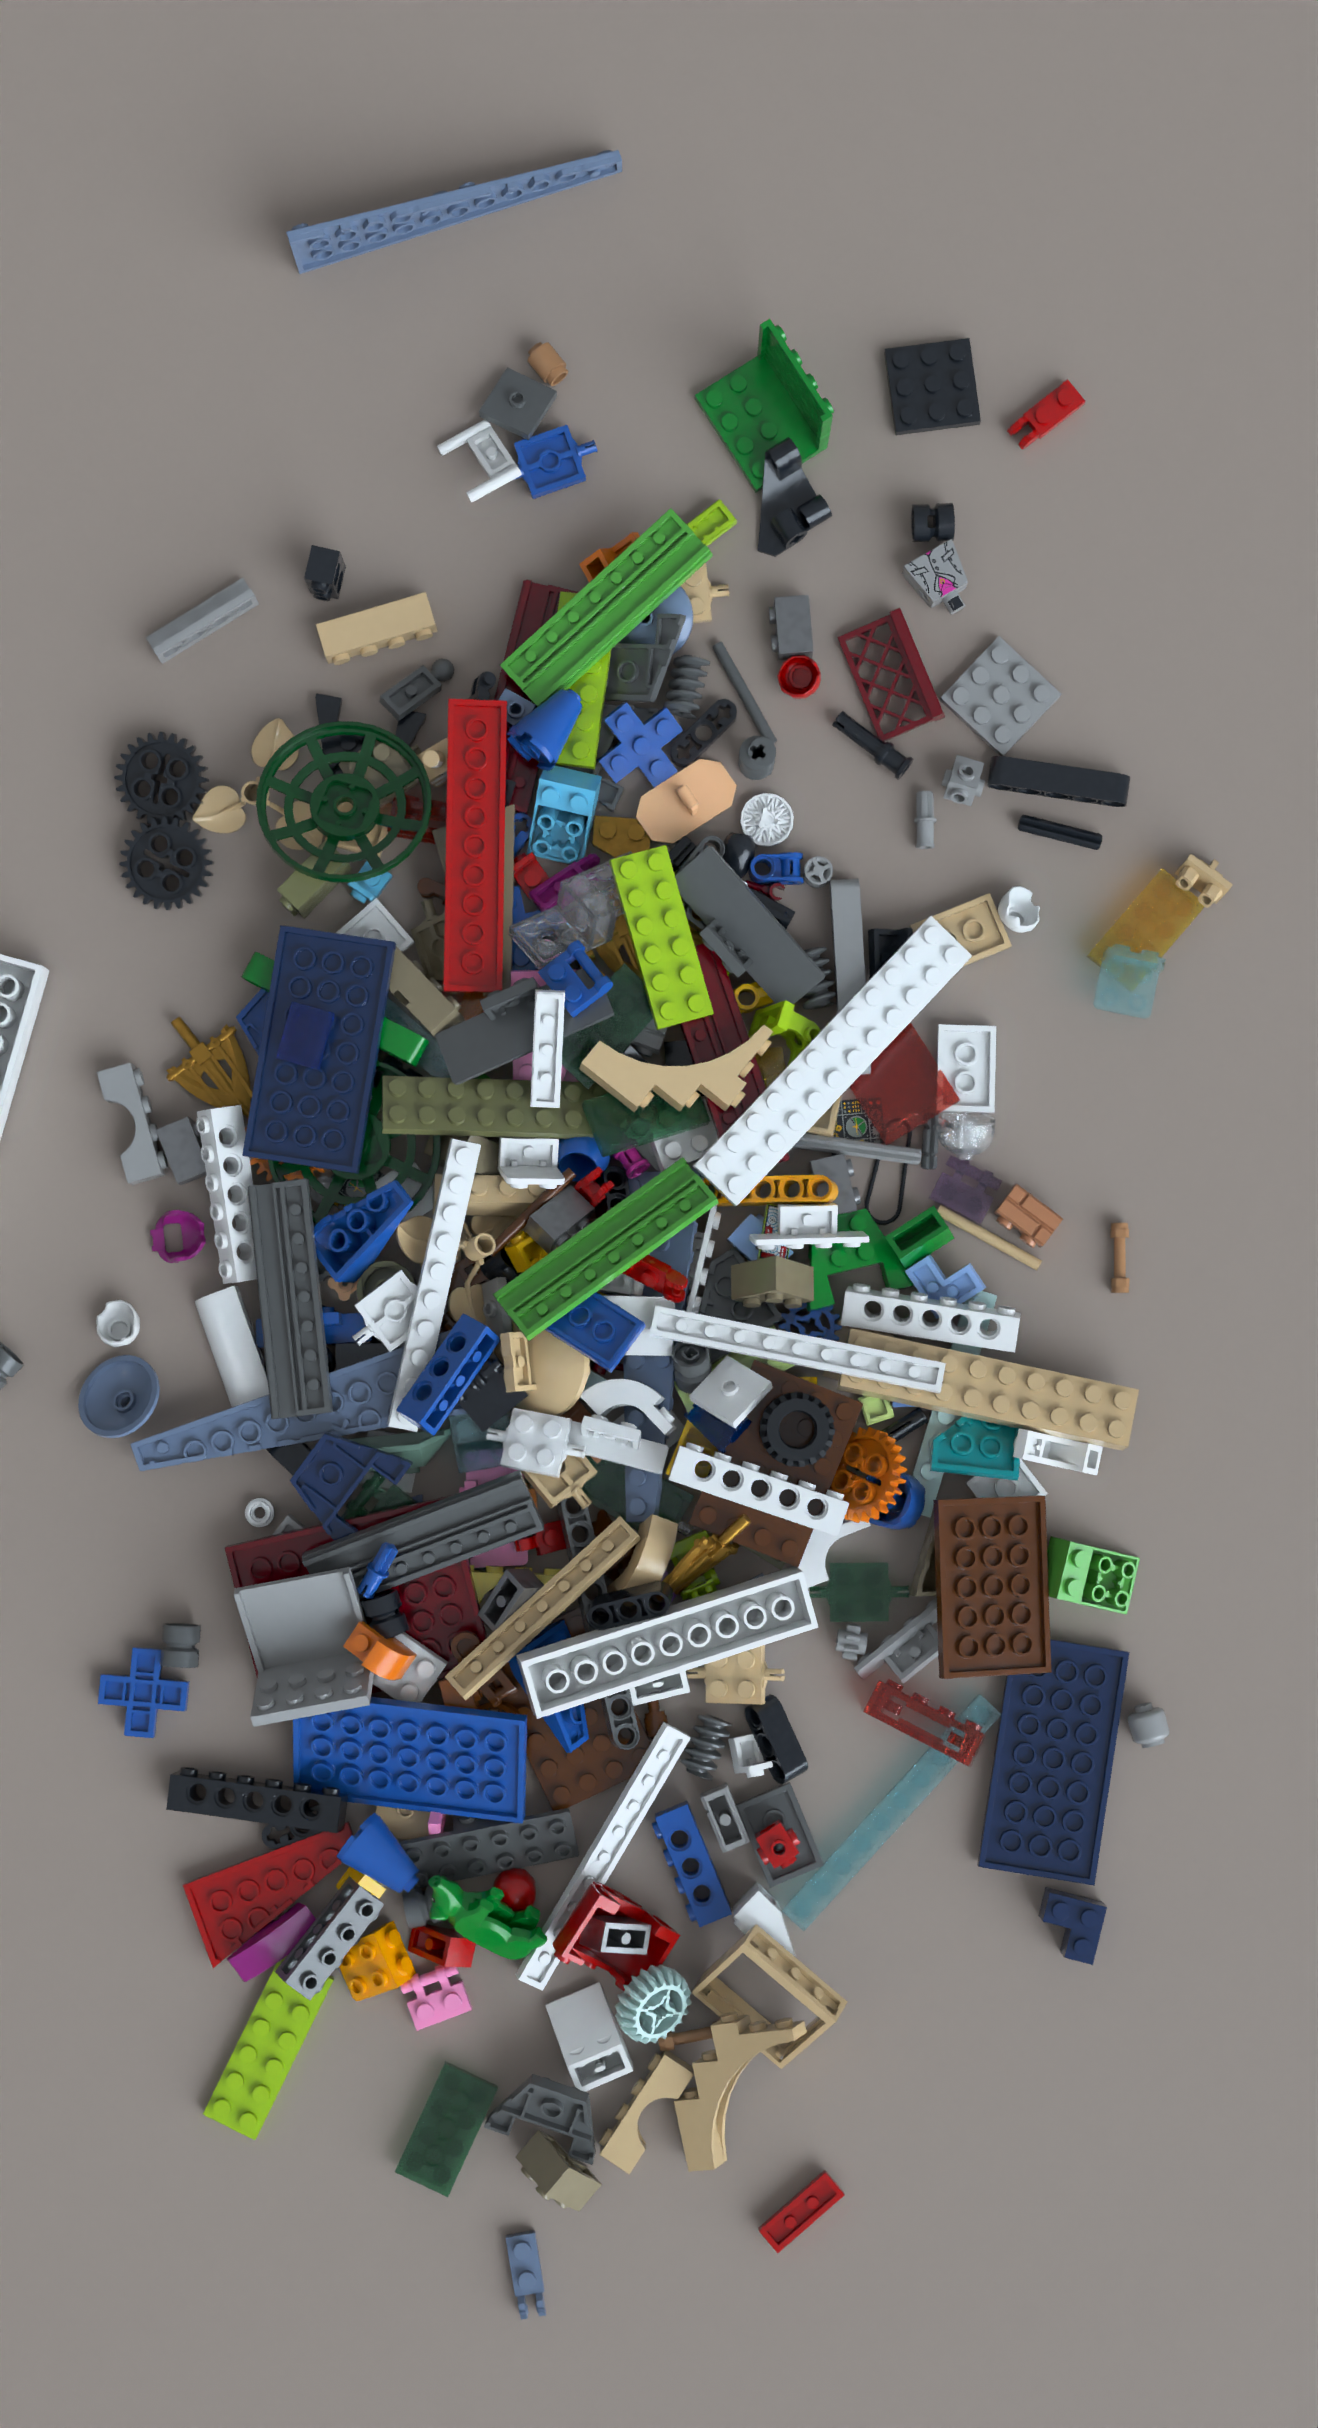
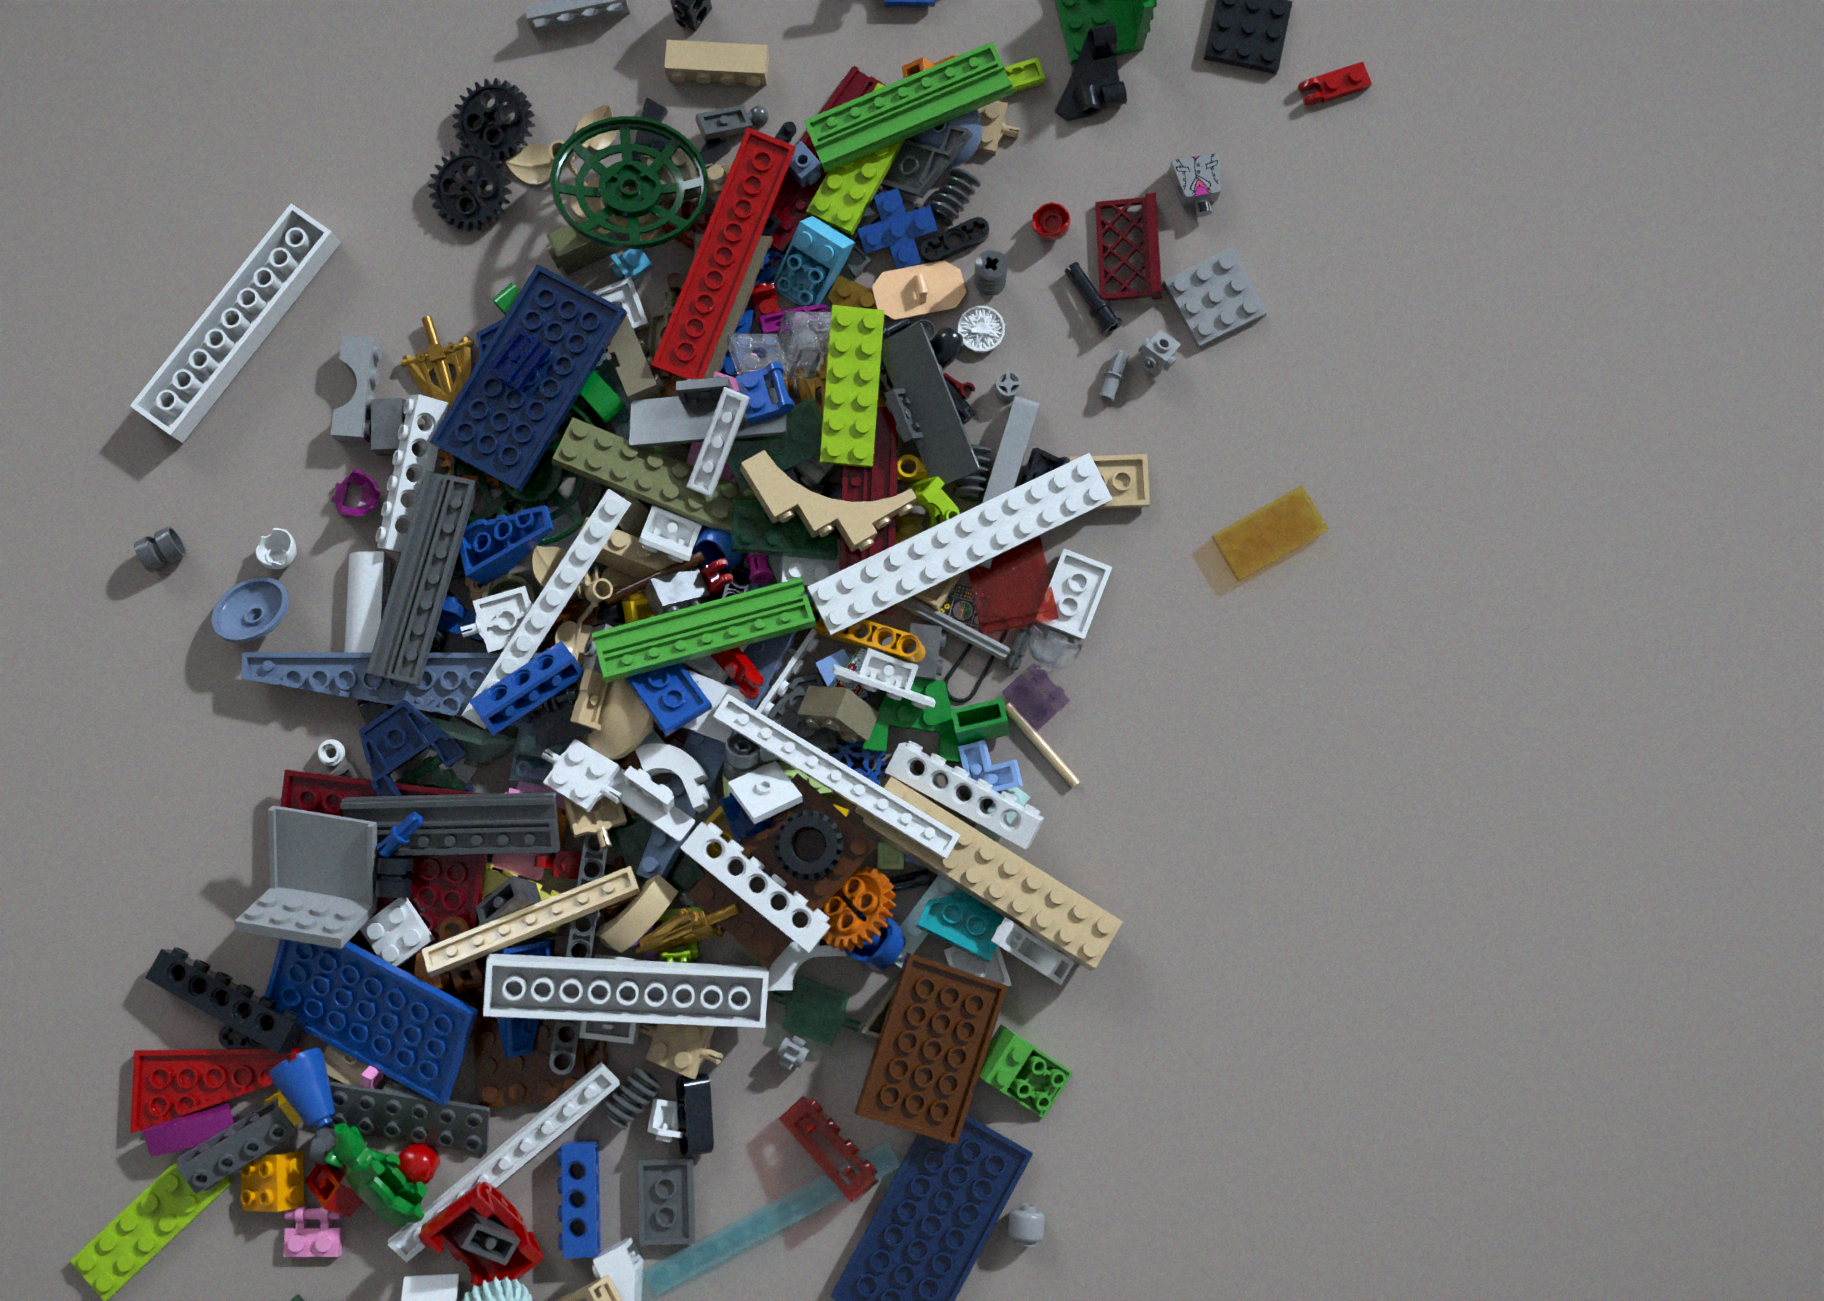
camera: 20 degrees right, 5 degrees down
(143, 1692) = (170, 870): blue plate -> none
(180, 1645) = (217, 841): dark grey wheel -> none
(379, 1655) = (372, 910): orange brick -> none
(546, 729) = (821, 183): blue cone -> none
(621, 1615) = (596, 952): black beam -> none
(724, 1817) = (622, 1167): light grey brick -> none
(743, 691) = (1000, 218): dark grey bar -> none
(775, 1834) = (661, 1200): red brick -> none
(779, 868) = (976, 371): blue piece -> none
(792, 626) = (1060, 179): flat silver brick -> none
(907, 1649) = (835, 1078): light grey bracket -> none
(943, 522) = (1217, 139): black wheel -> none
(1018, 911) = (1165, 476): white hair -> none
(1027, 1216) = (1081, 738): nougat brick -> none
(1058, 781) = (1239, 383): black beam -> none
(1060, 832) = (1225, 426): black axle -> none
(1119, 1283) = (1155, 781): medium nougat bar -> none
(1128, 981) = (1239, 567): clear light blue bracket -> none
(1203, 878) = (1334, 506): tan hips -> none

